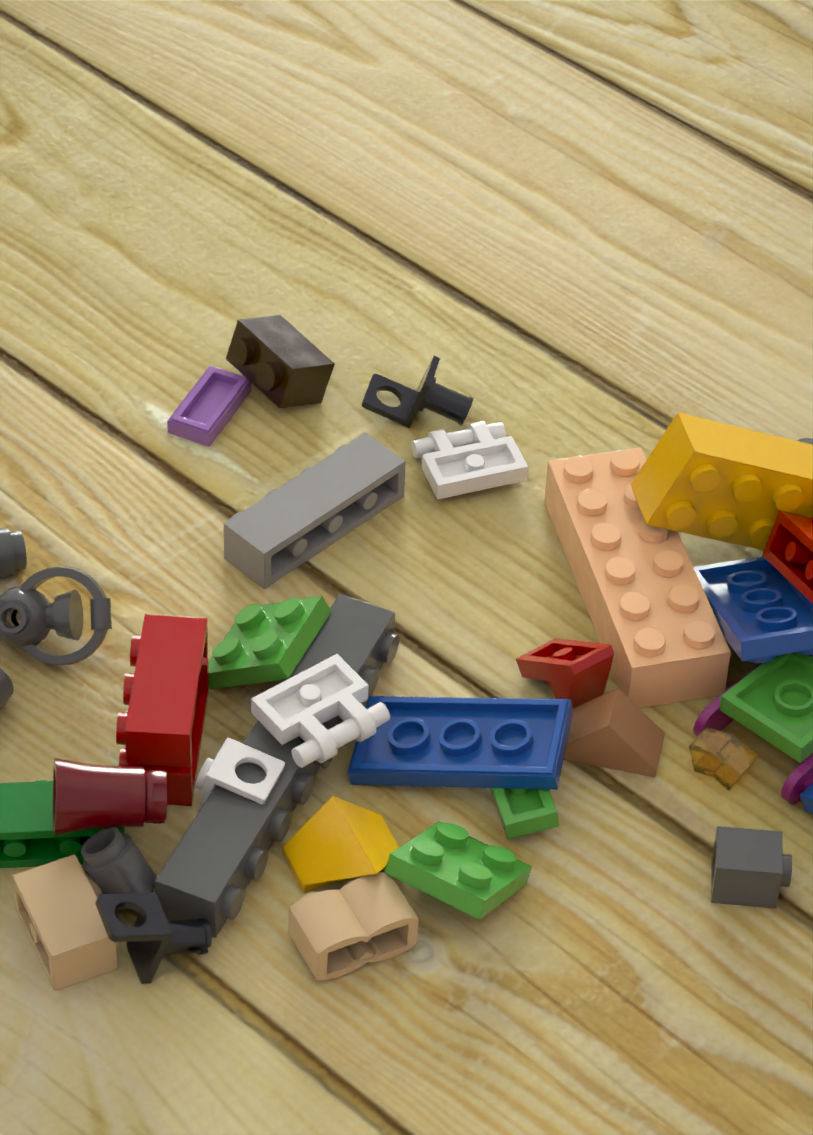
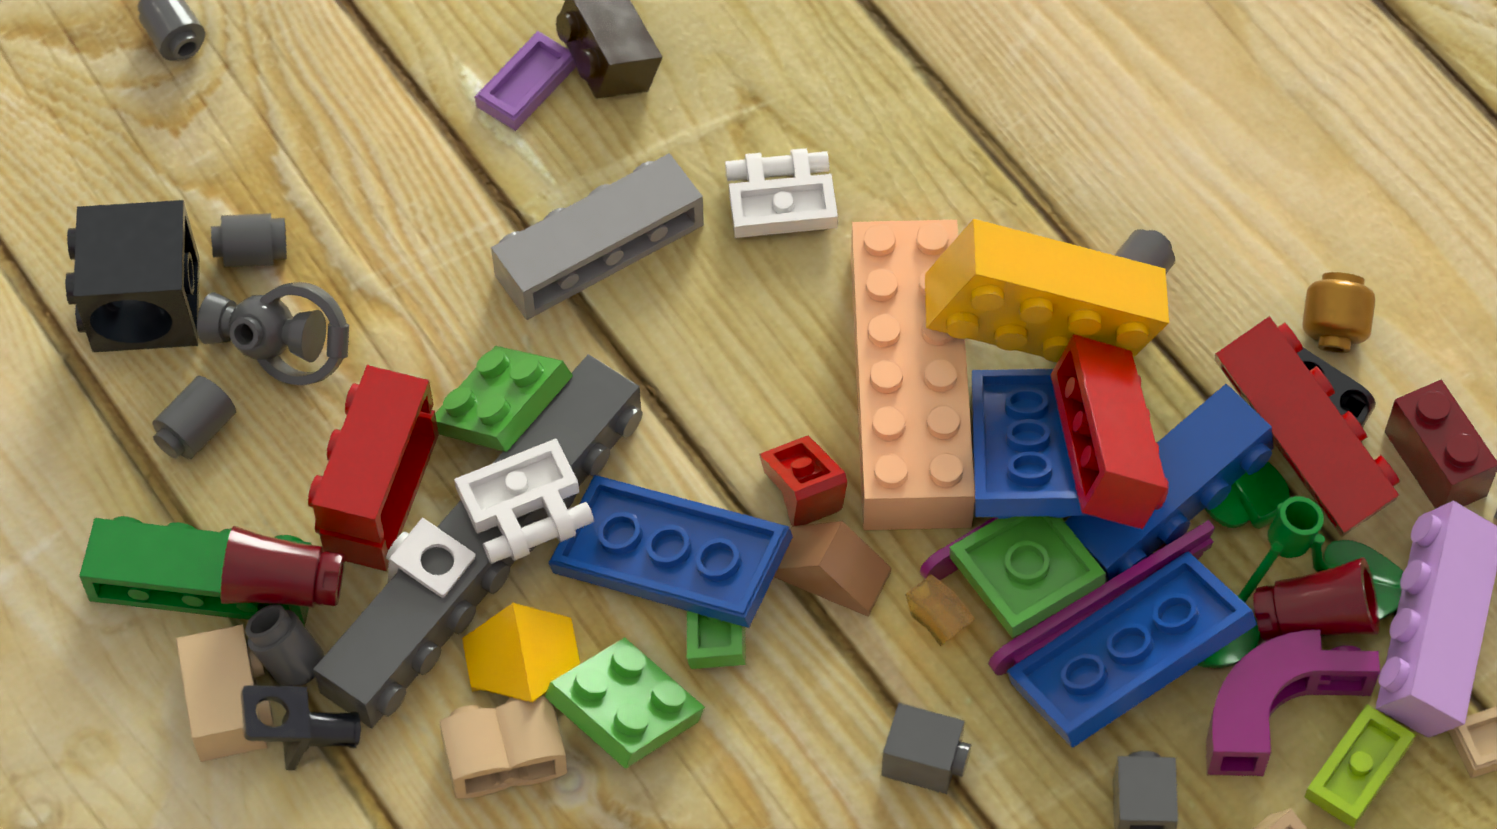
camera: 15 degrees right, 15 degrees up
(428, 396) = (744, 107): black bracket -> none

